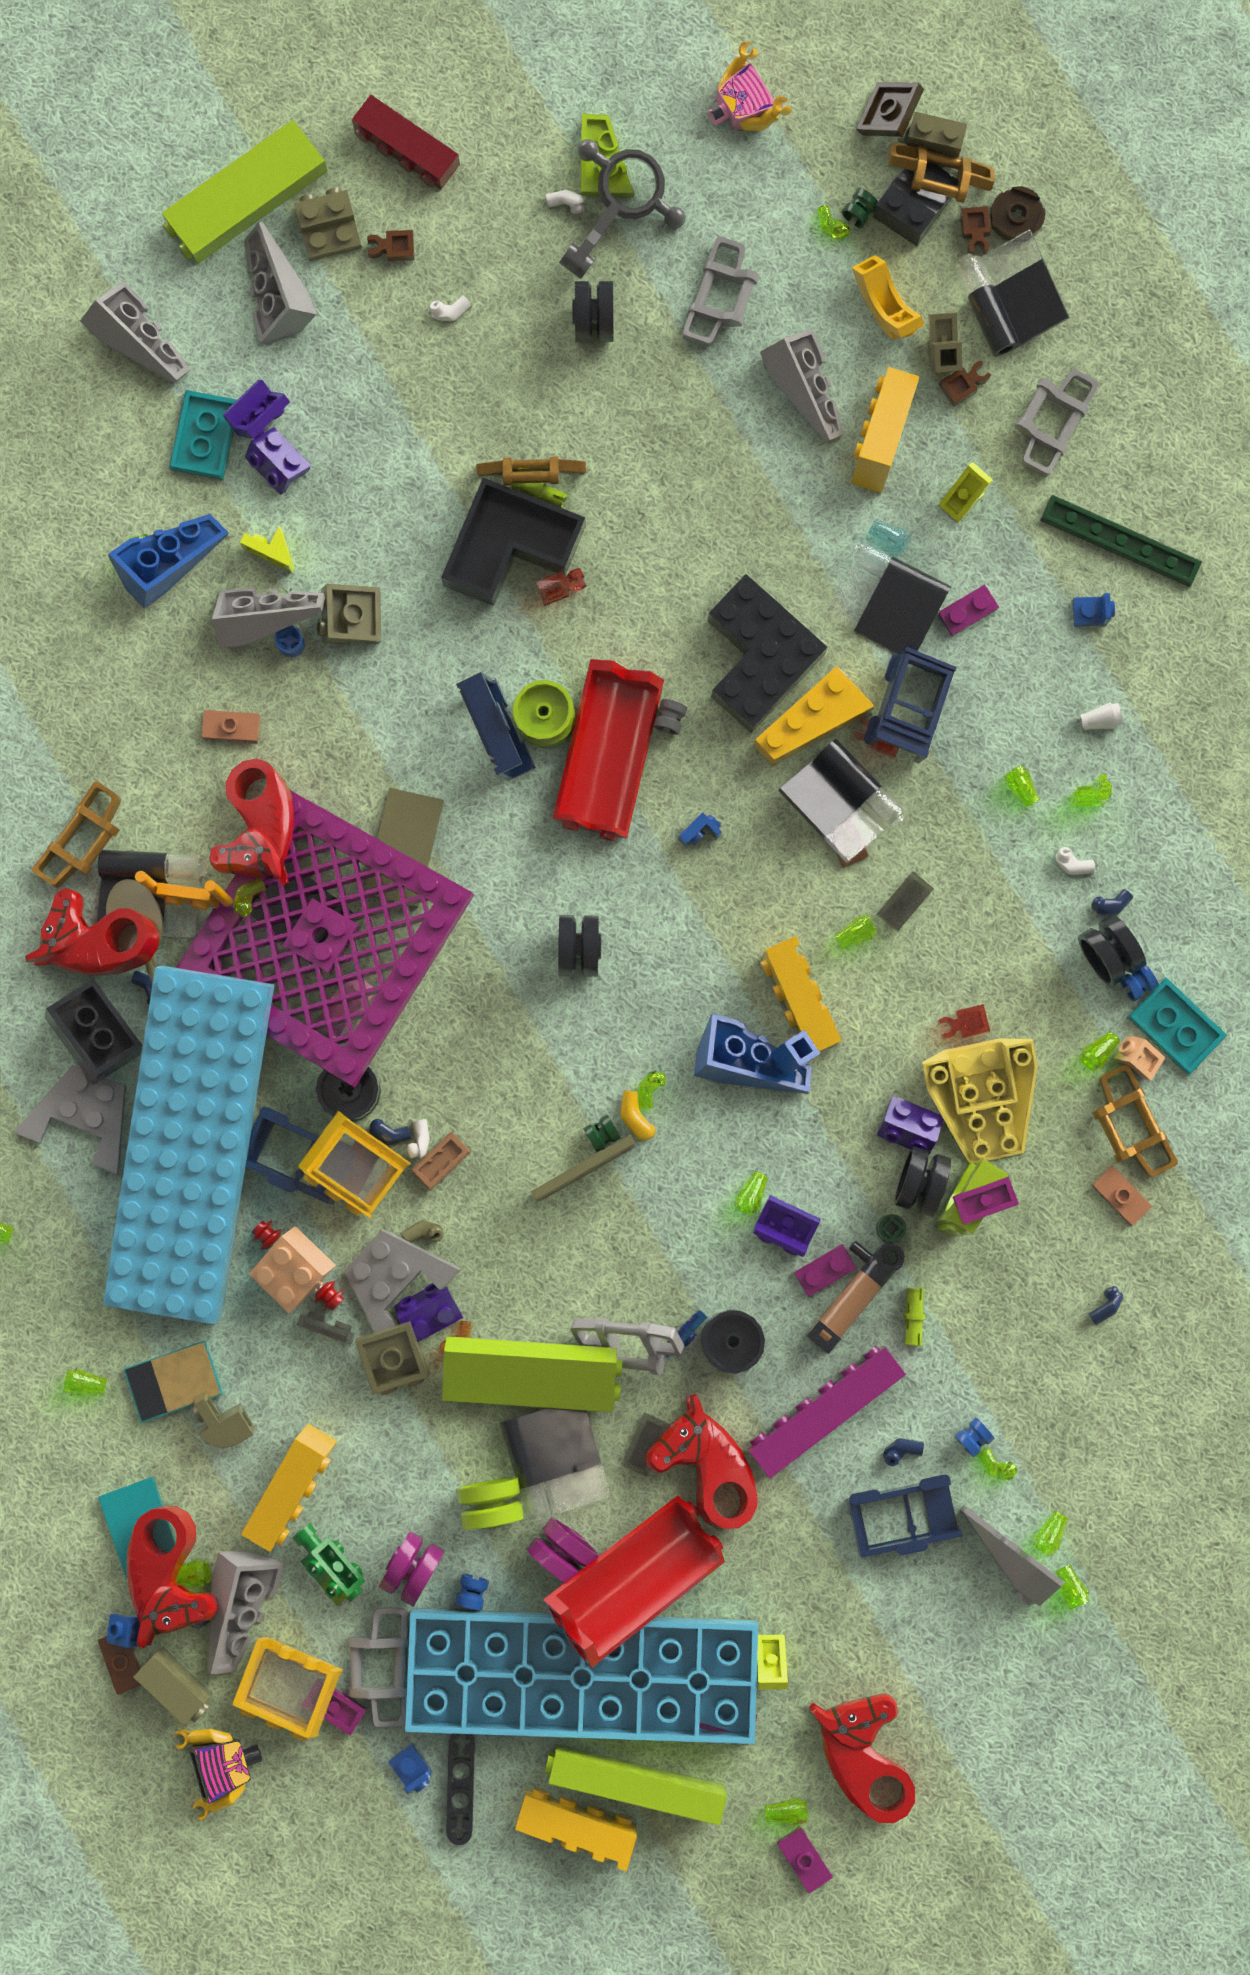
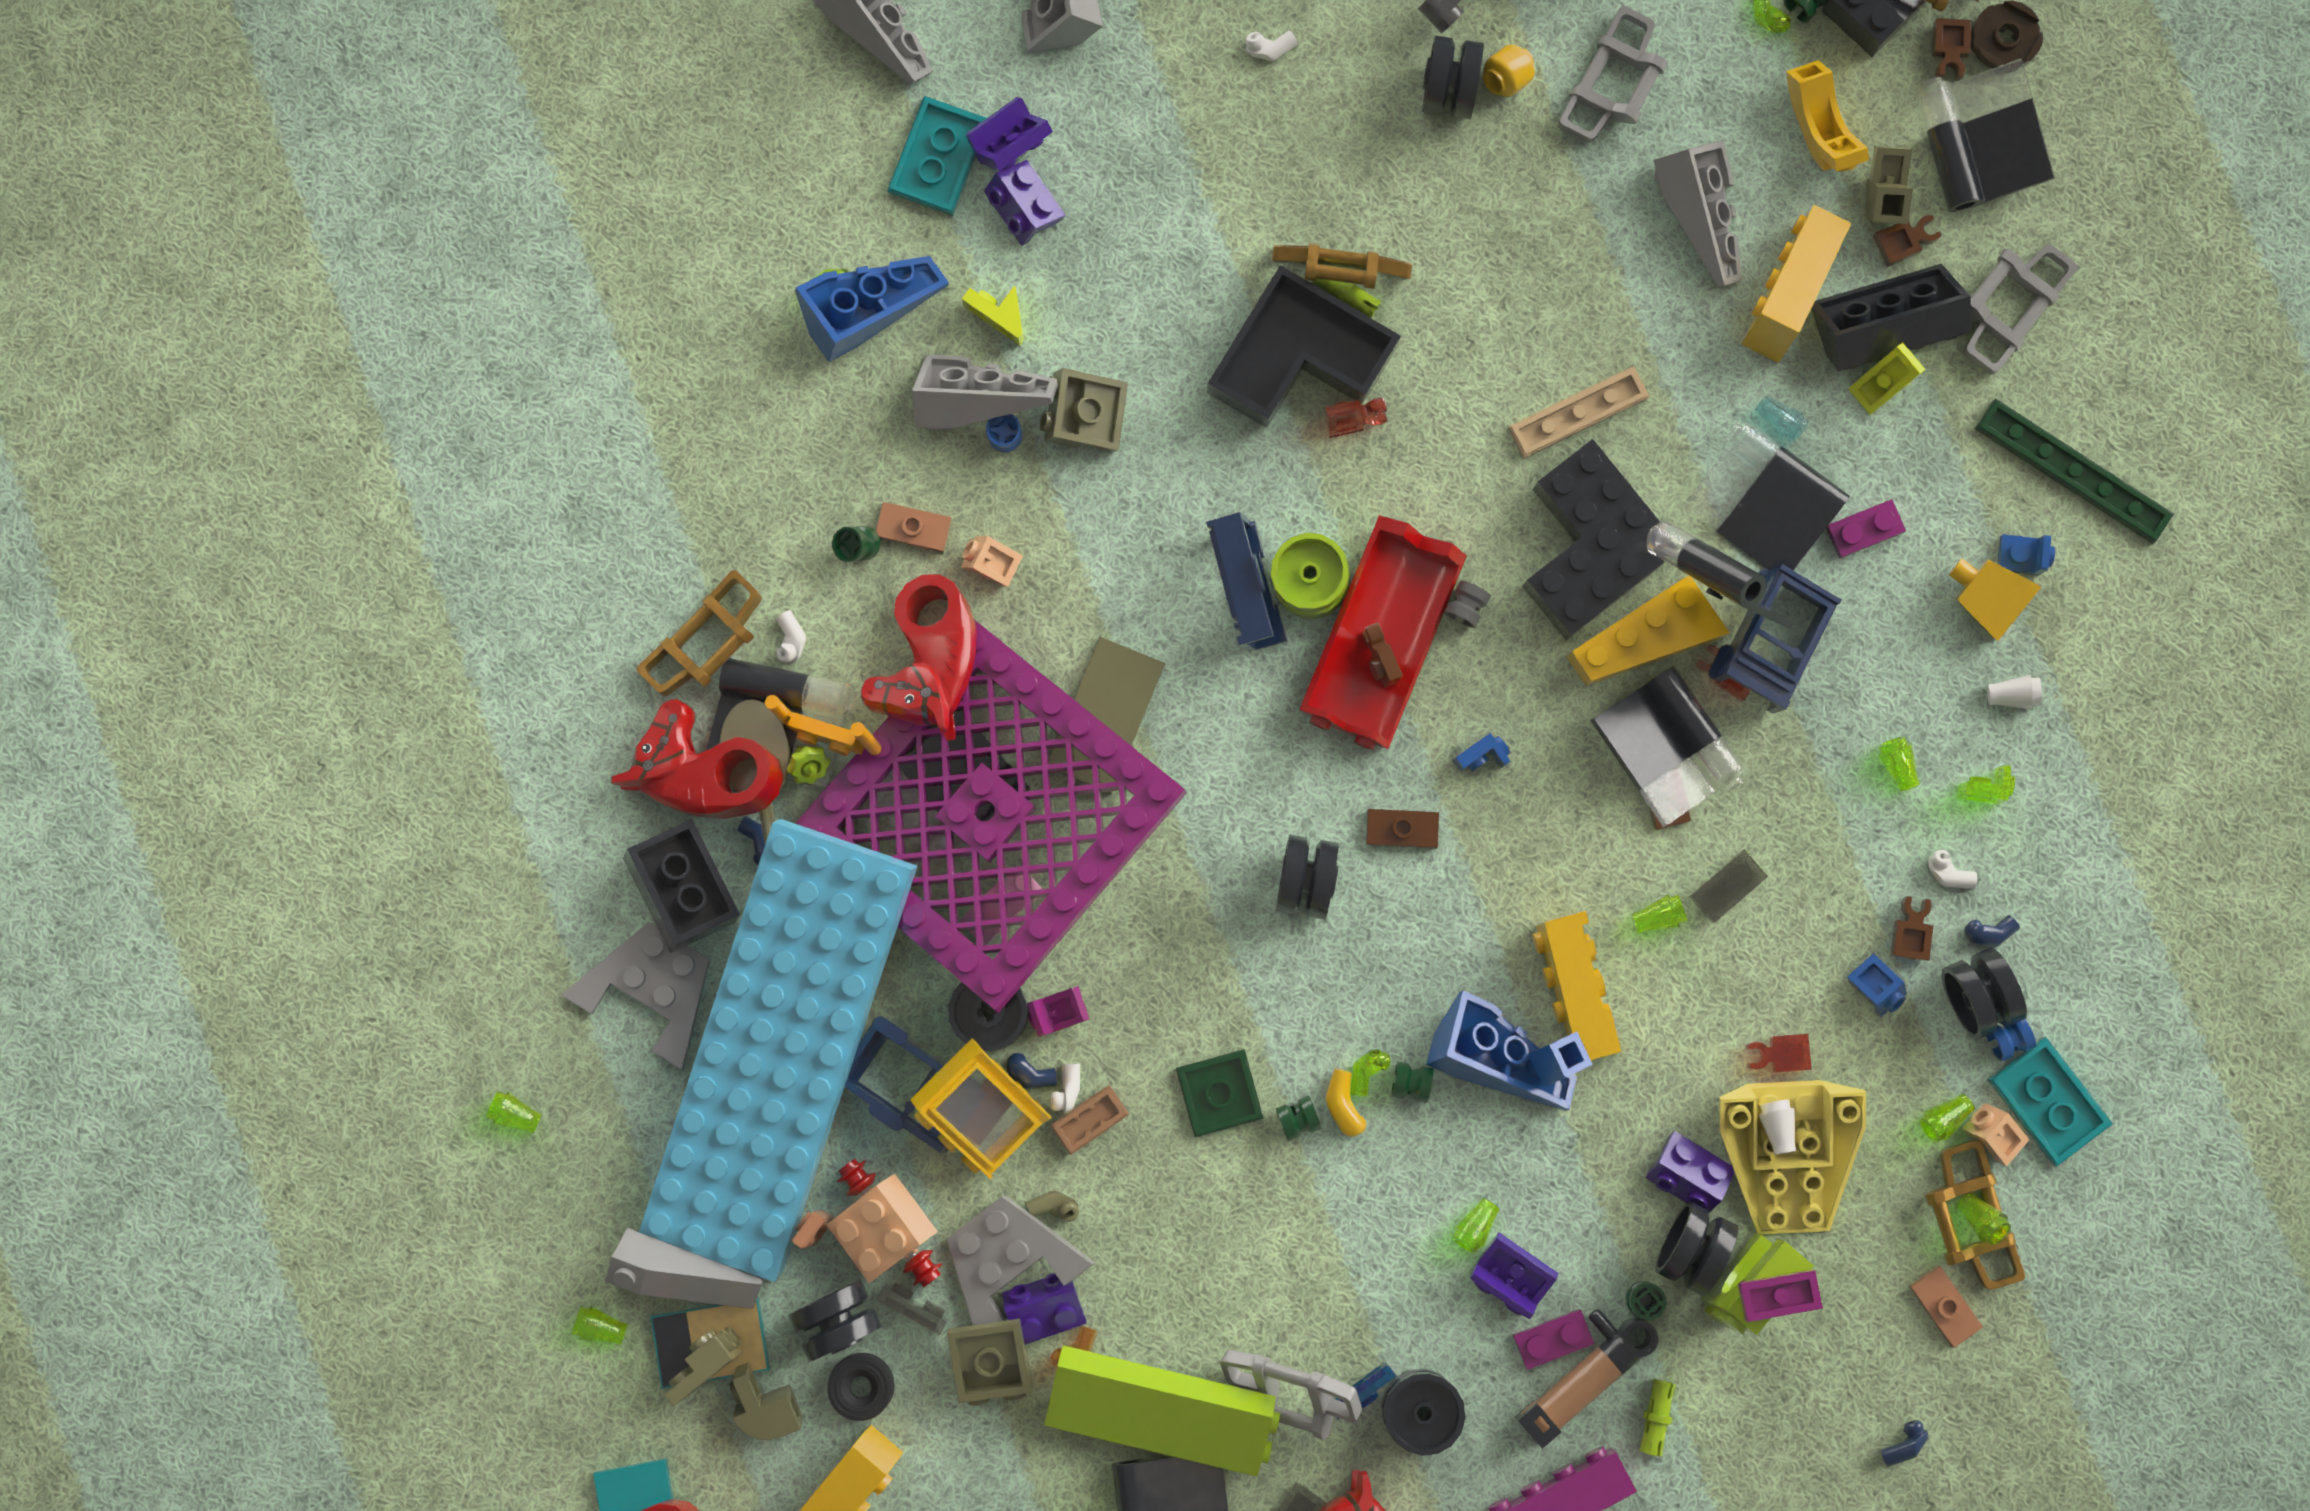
camera: 15 degrees right, 0 degrees up
(132, 1330) = (667, 1271): none -> light grey wedge
(151, 827) = (793, 640): none -> white arm
(172, 1392) = (709, 1356): none -> olive plate
(177, 921) = (808, 764): none -> lime piece
(187, 745) = (849, 548): none -> dark green wheel
(237, 1279) = (812, 1228): none -> nougat plate
(244, 896) = (896, 747): clear neon green arm -> none
(266, 1345) = (836, 1323): none -> black wheel
(279, 1395) = (840, 1391): none -> black tyre
(295, 741) = (991, 559): none -> light nougat bracket
(402, 1081) = (1057, 1011): none -> magenta bracket
(538, 1124) = (1219, 1093): none -> dark green tile
(583, 1168) = (1269, 1161): olive tile -> none
(612, 772) = (1383, 663): none -> reddish brown plate
(637, 300) = (1508, 71): none -> yellow head
(647, 897) = (1402, 828): none -> reddish brown plate
(685, 1091) = (1412, 1082): none -> dark green wheel
(733, 555) = (1578, 412): none -> tan tile
(850, 656) = (1711, 568): none -> black door
(971, 1076) = (1779, 1125): none -> white cone
(972, 436) = (1880, 316): none -> black slope
(1032, 958) = (1879, 985): none -> blue bracket
(1051, 917) = (1912, 937): none -> reddish brown plate
(1072, 644) = (1993, 594): none -> yellow torso
(1141, 1124) = (1986, 1221): none -> clear neon green cone

